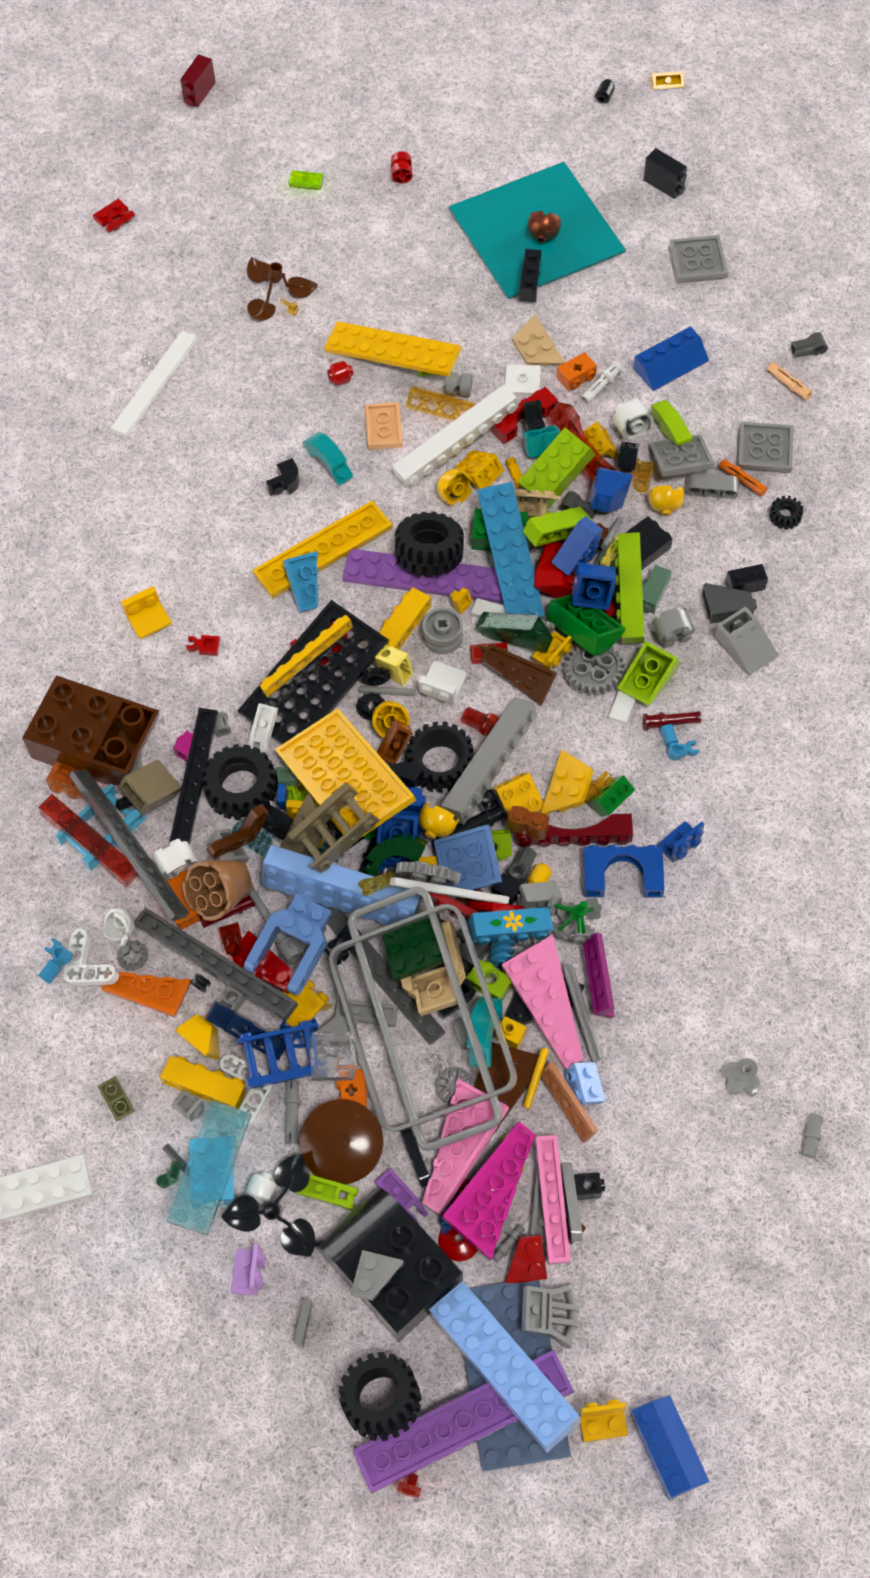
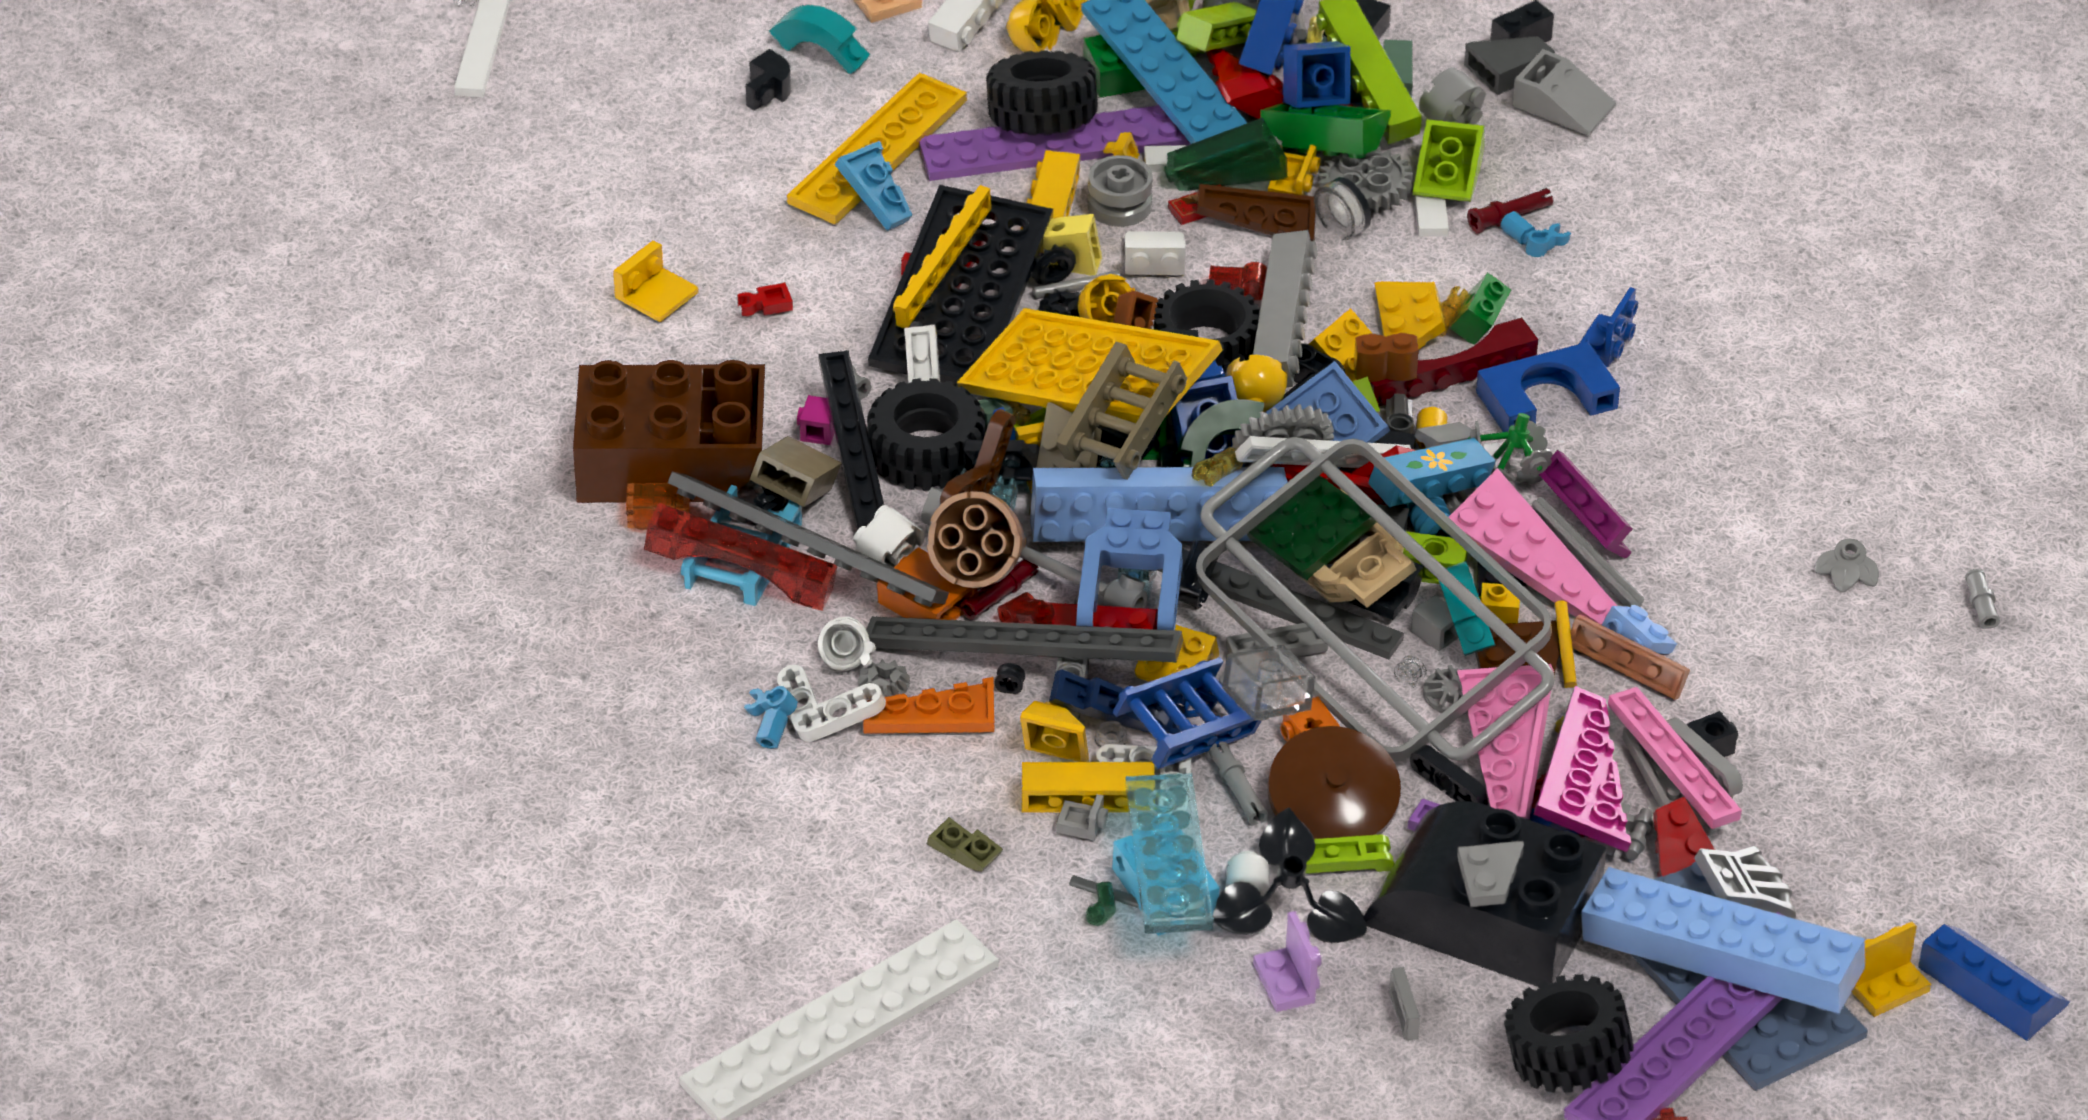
camera: 25 degrees left, 20 degrees down
(565, 690) = (1342, 208): none -> clear piece

